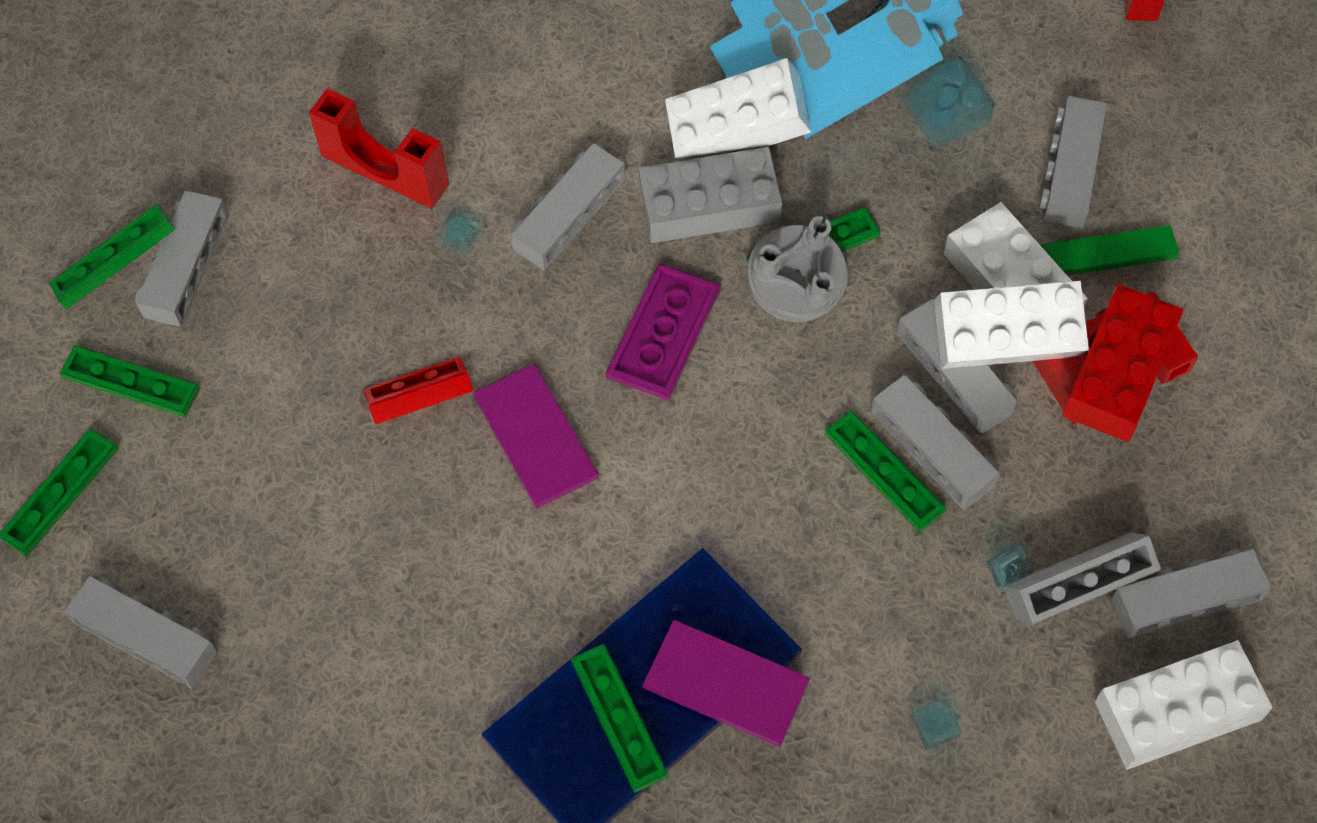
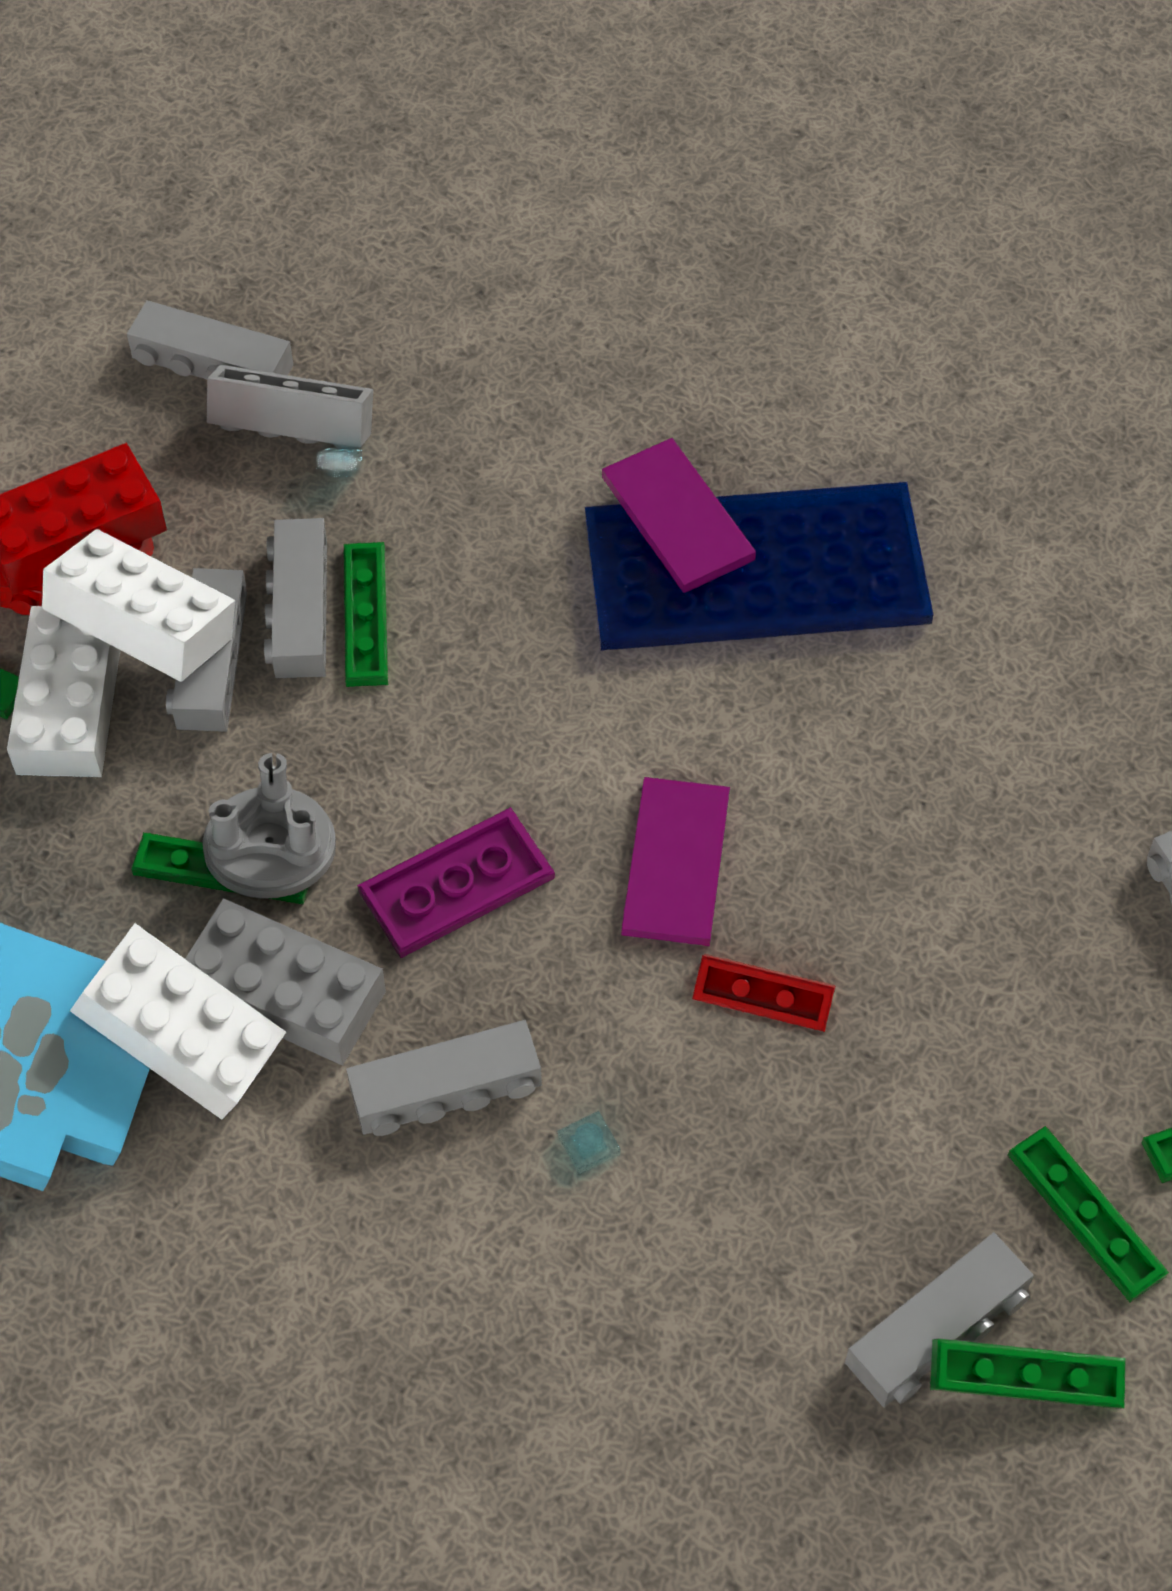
camera: 145 degrees left, 5 degrees down
(413, 170) = (637, 1314): red arch -> none
(619, 718) = (796, 548): green tile -> none
(936, 724) = (519, 392): clear light blue plate -> none
(1182, 704) = (307, 280): white brick -> none

